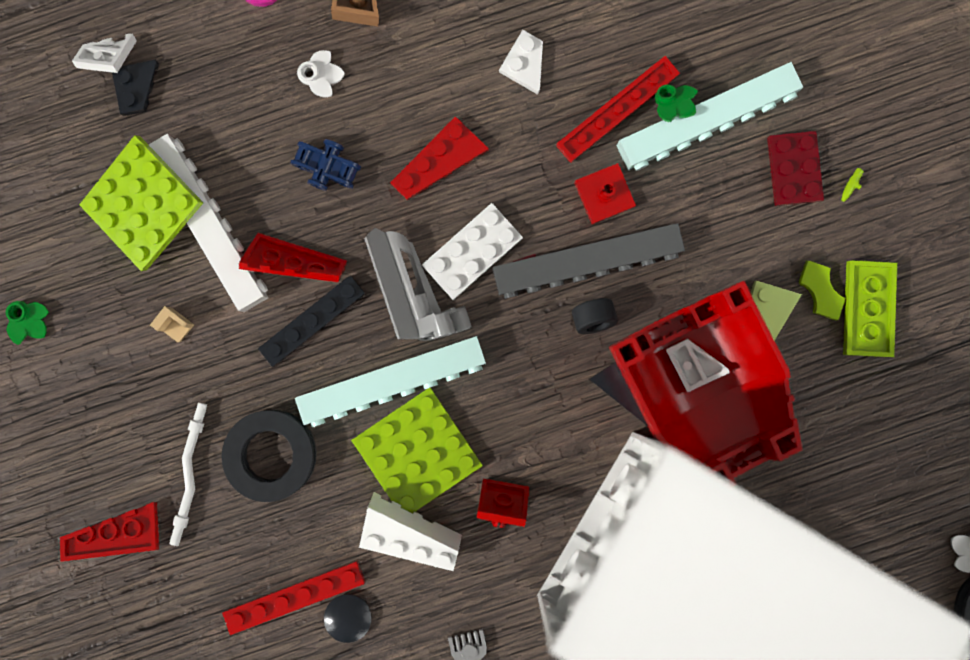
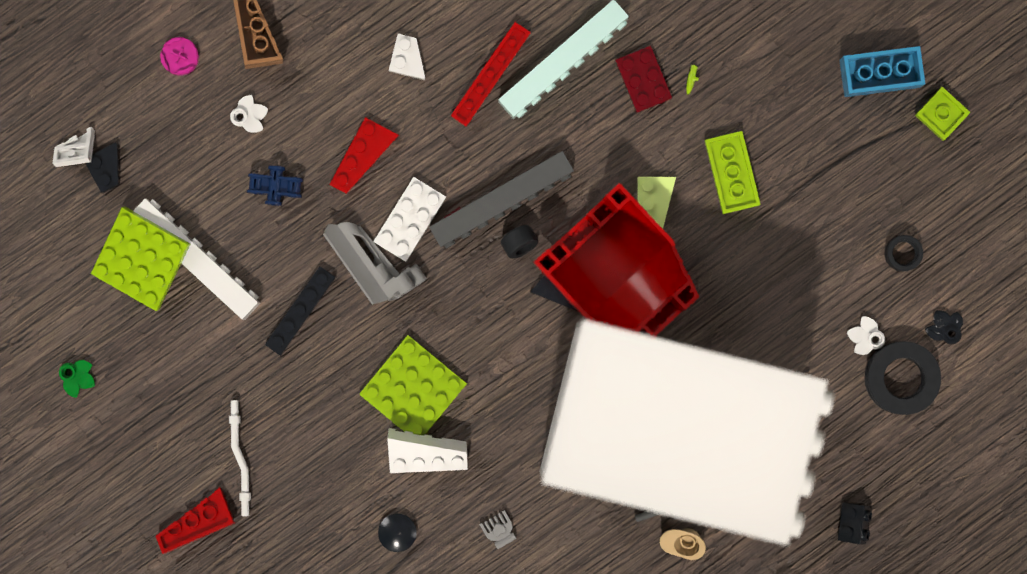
camera: 20 degrees left, 0 degrees up
(172, 324) = (192, 345): tan panel -> none
(235, 455) = (271, 424): black tyre -> none
(288, 259) = (266, 268): red wing -> none
(293, 597) = (350, 529): red plate -> none
(390, 380) = (376, 338): light aqua brick -> none
(503, 503) = (490, 406): red tile -> none
(604, 193) = (500, 143): red tile -> none
(675, 102) = (535, 57): green plate -> none
(695, 365) = (607, 256): white wing -> none
(817, 281) = (698, 176): lime tile -> none

